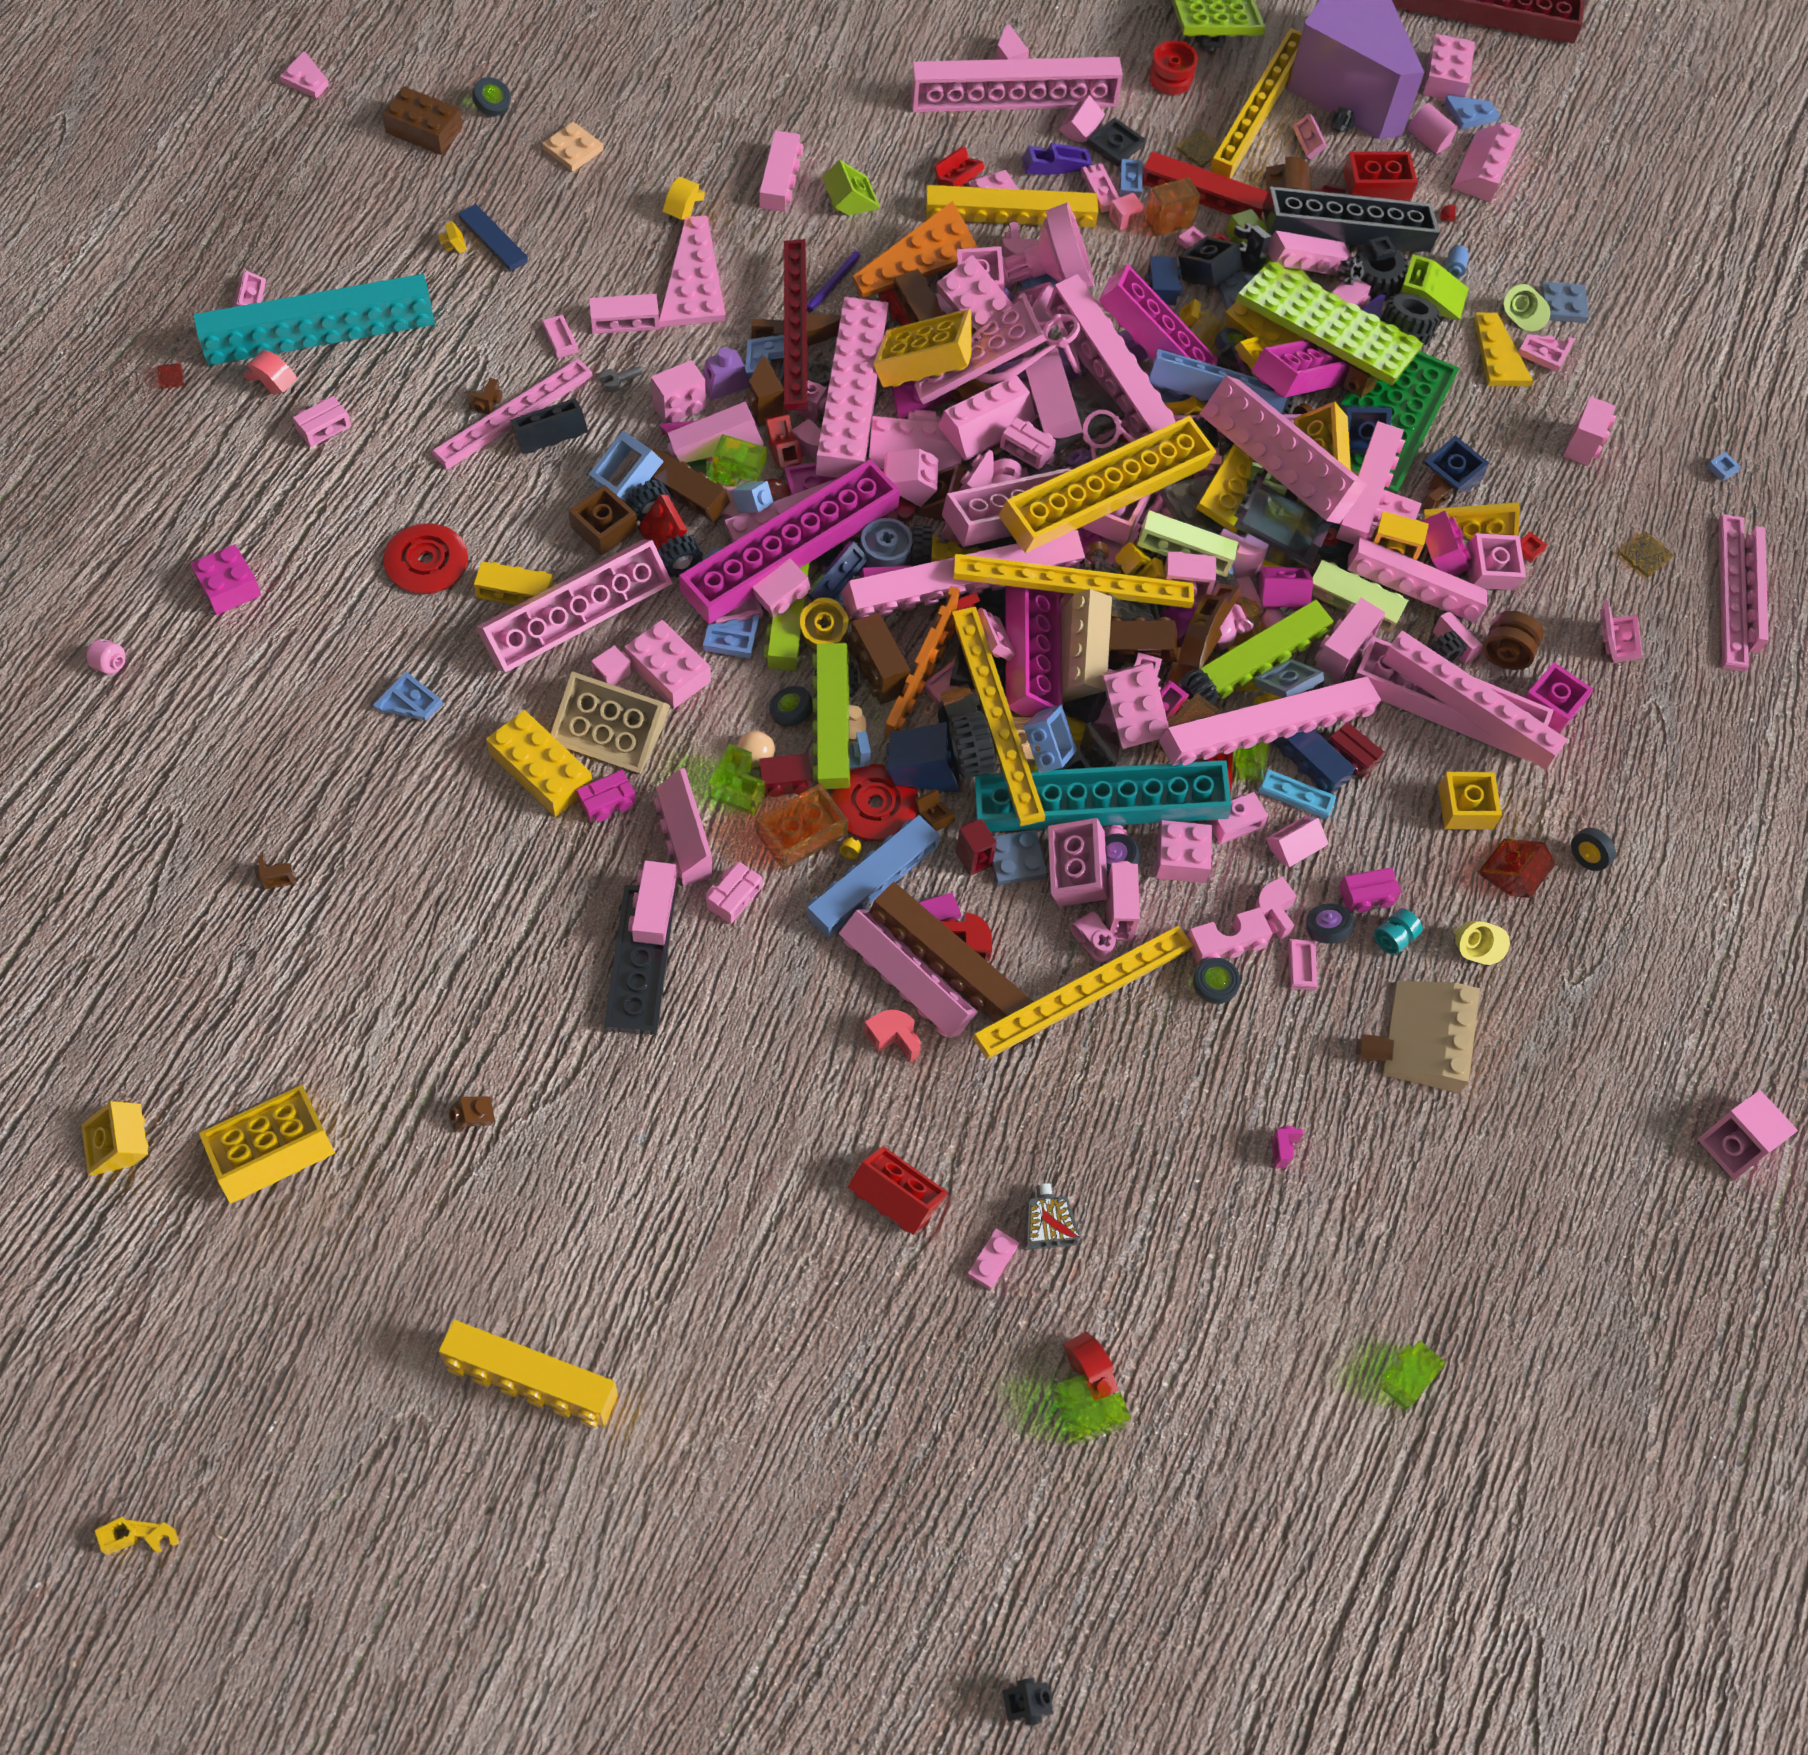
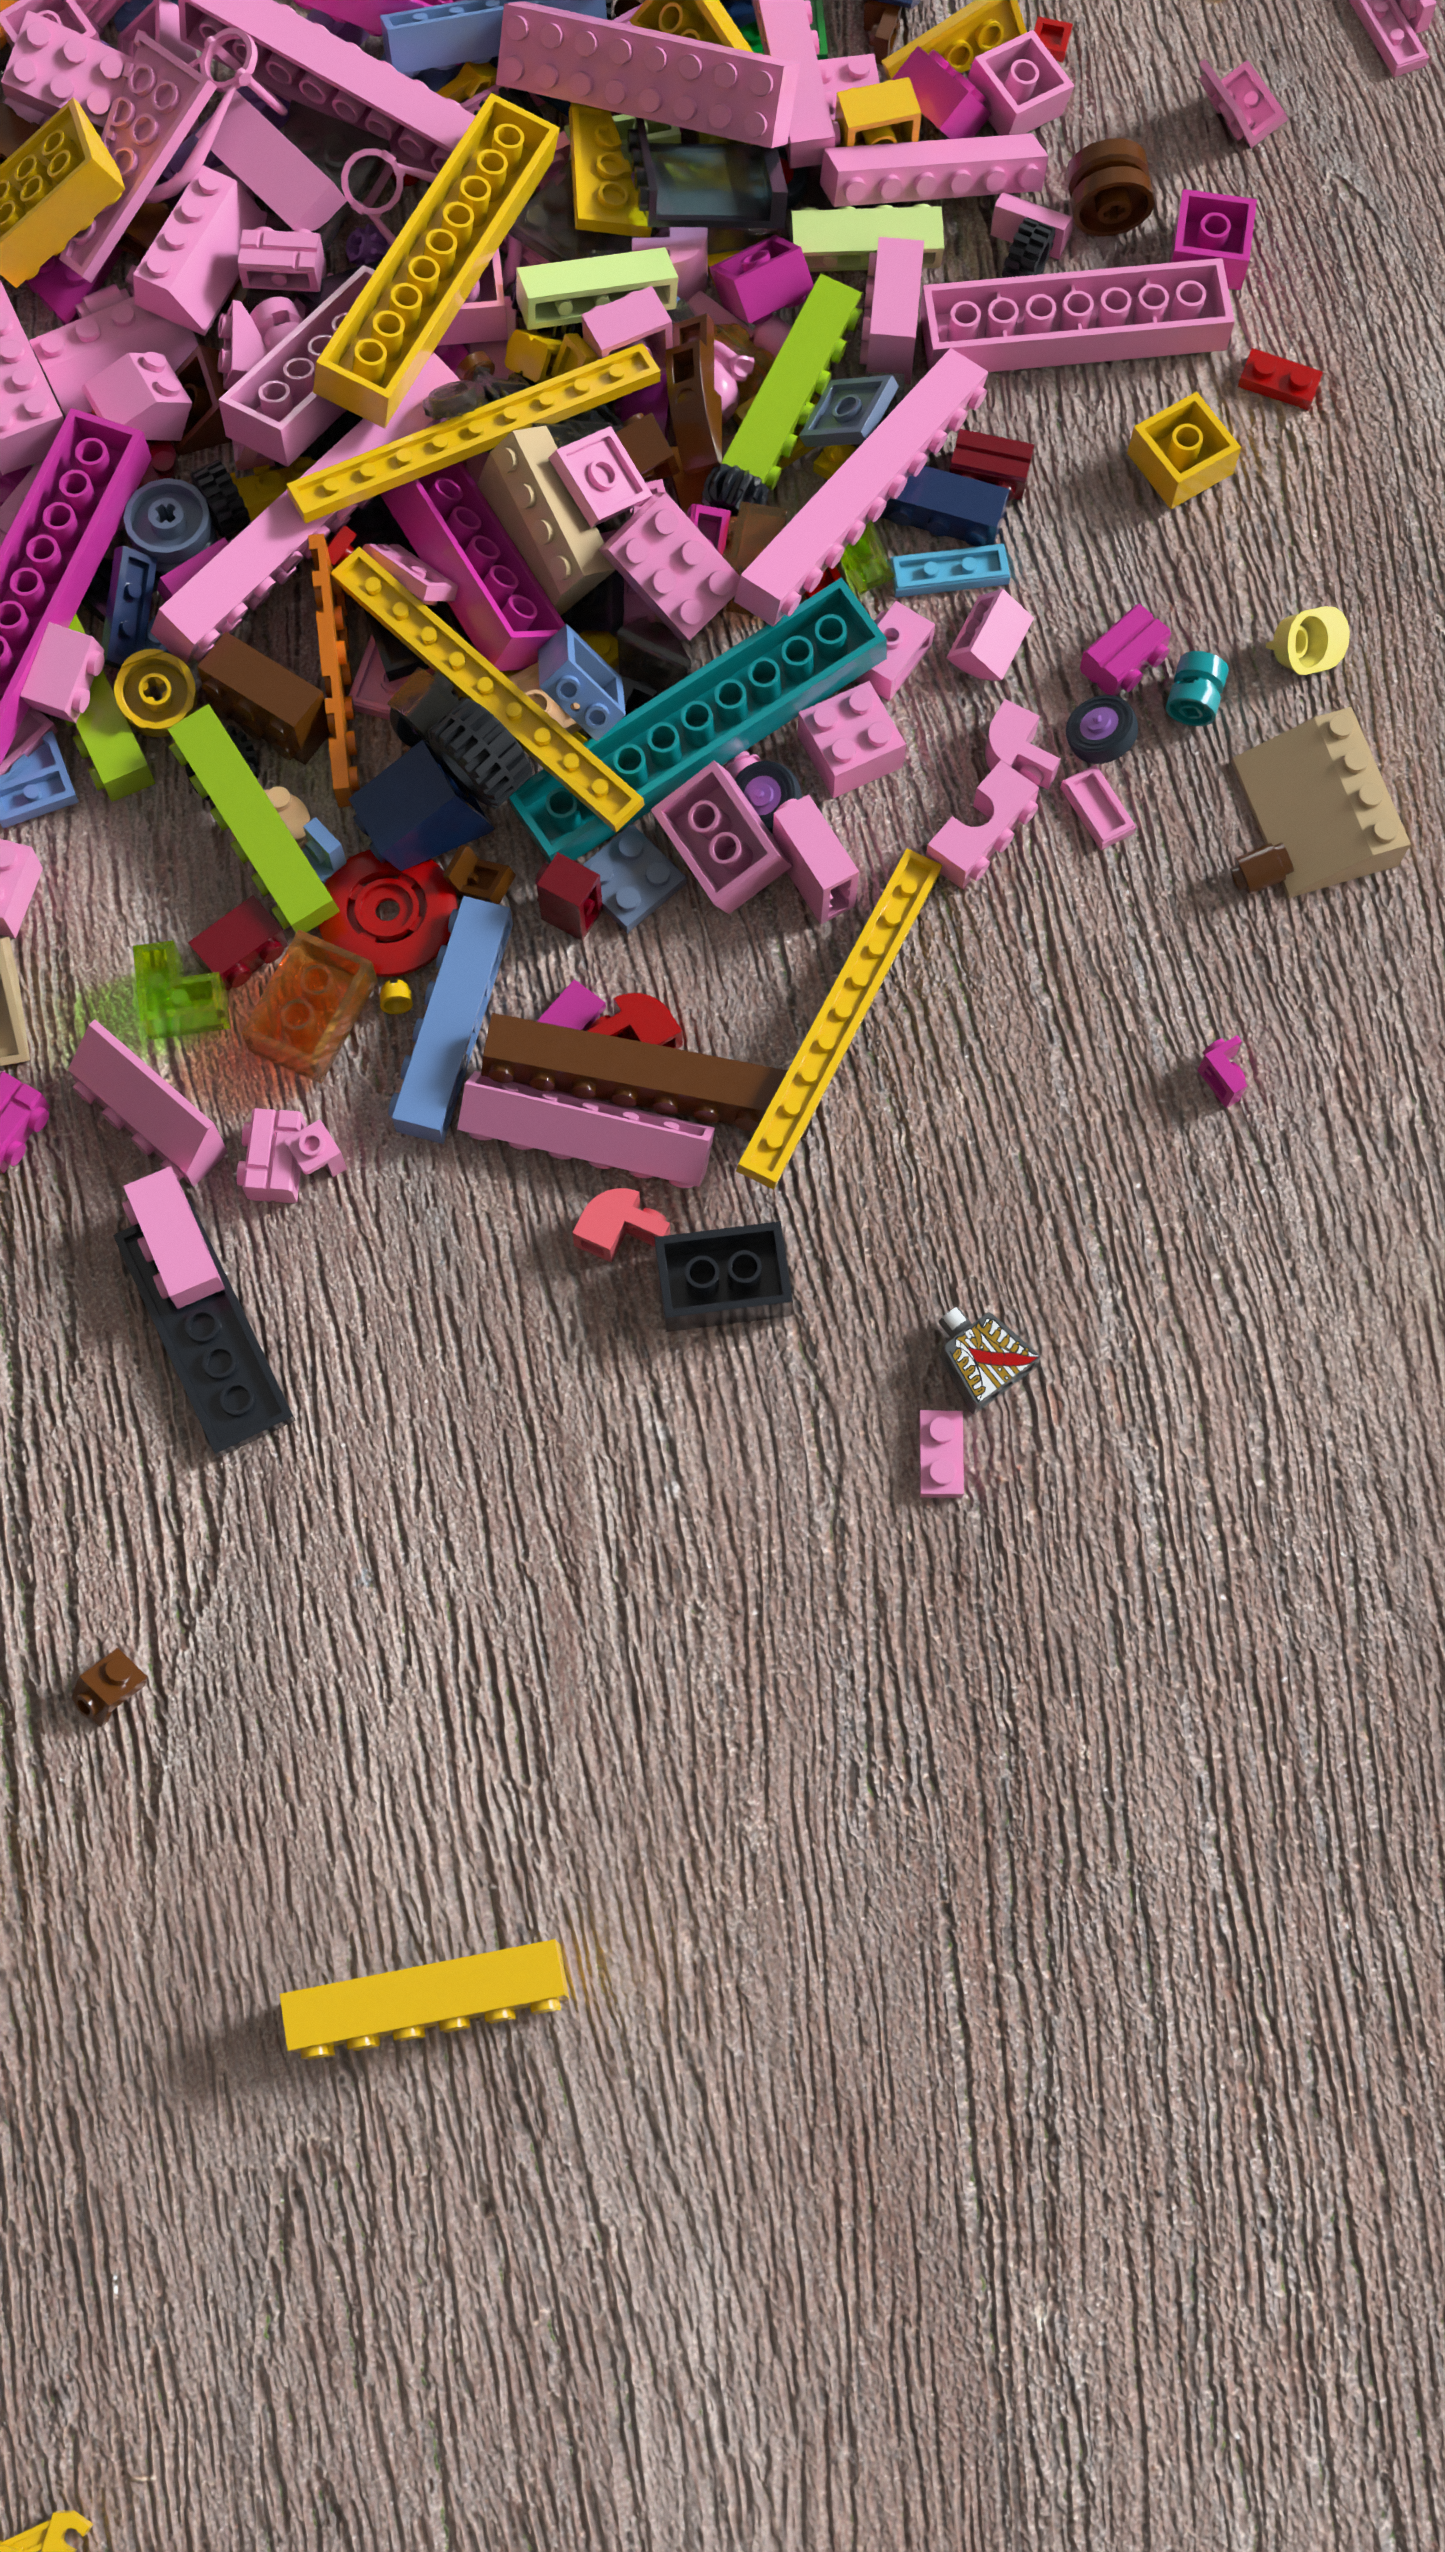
camera: 25 degrees left, 10 degrees up
(757, 900) = (316, 1148): none -> bright pink bracket
(759, 744) = (171, 922): light nougat hair -> none
(791, 706) = (182, 839): black wheel -> none
(897, 1190) = (759, 1438): red slope -> none
(931, 1092) = (723, 1276): none -> black brick
(1028, 1702) = (1345, 2008): black brick -> none
(1071, 558) = (453, 399): none -> clear smoke gear
(1086, 1417) = (1189, 1591): clear neon green brick -> none
(1091, 1360) = (1157, 1516): red brick -> none
(1094, 936) = (801, 929): bright pink piece -> none
(1125, 638) = (600, 476): none -> bright pink plate
(1216, 980) = (1003, 896): black wheel -> none
(1474, 700) = (1115, 302): bright pink brick -> none
(1518, 866) = (1297, 507): clear red slope -> none
(1552, 793) = (1280, 379): none -> red plate
(1593, 849) = (1380, 427): black wheel -> none

